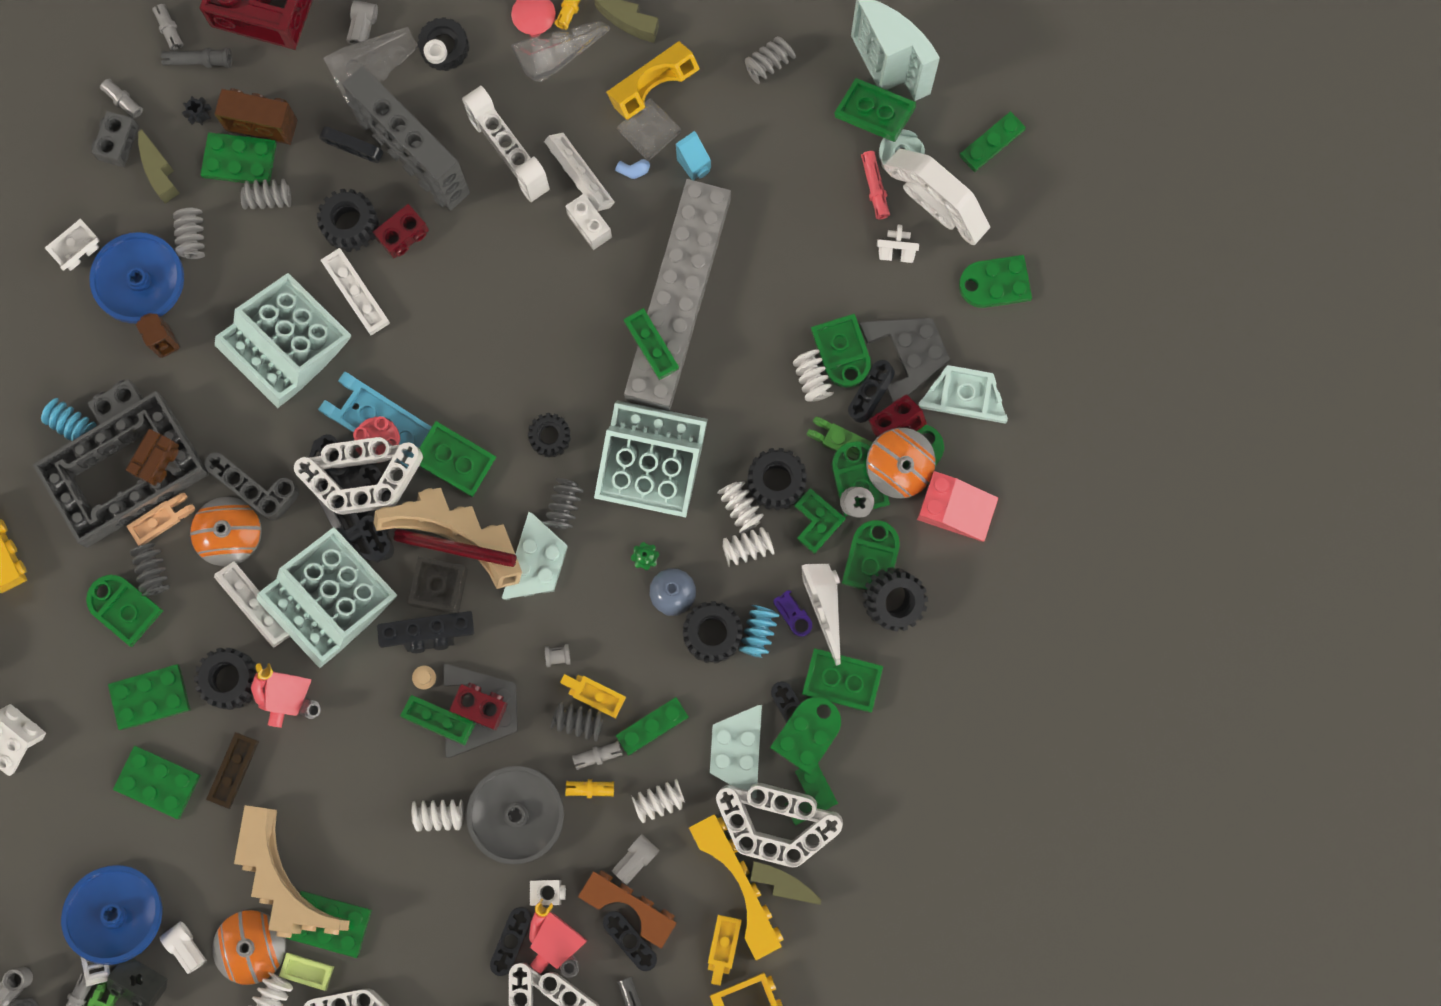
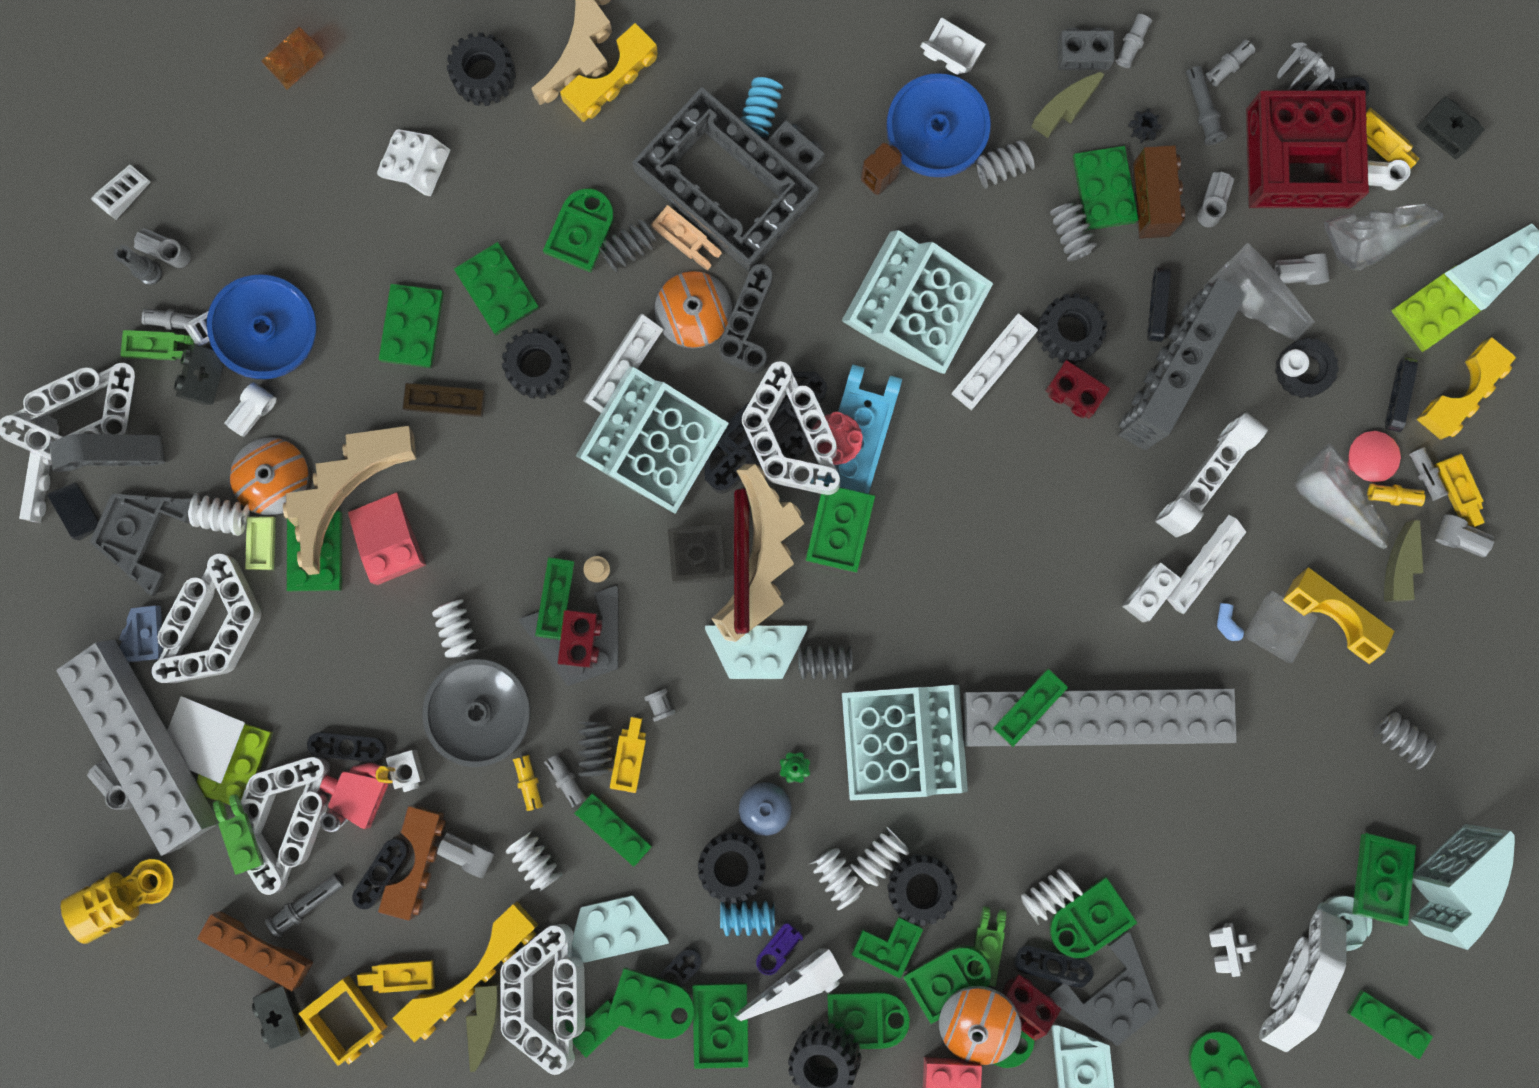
camera: 70 degrees right, 5 degrees up
(153, 457) = (743, 209): reddish brown brick -> none
(278, 73) = (1215, 198): none -> light grey piece
(282, 695) = (535, 428): coral torso -> none
(339, 855) = (385, 539): none -> coral slope
(426, 632) = (644, 558): black bracket -> none
(549, 421) = (914, 622): black tyre -> none
(693, 156) = (1262, 688): medium azure slope -> none
(866, 501) = (919, 990): light grey piece -> none
(877, 192) = (1286, 908): coral pin -> none

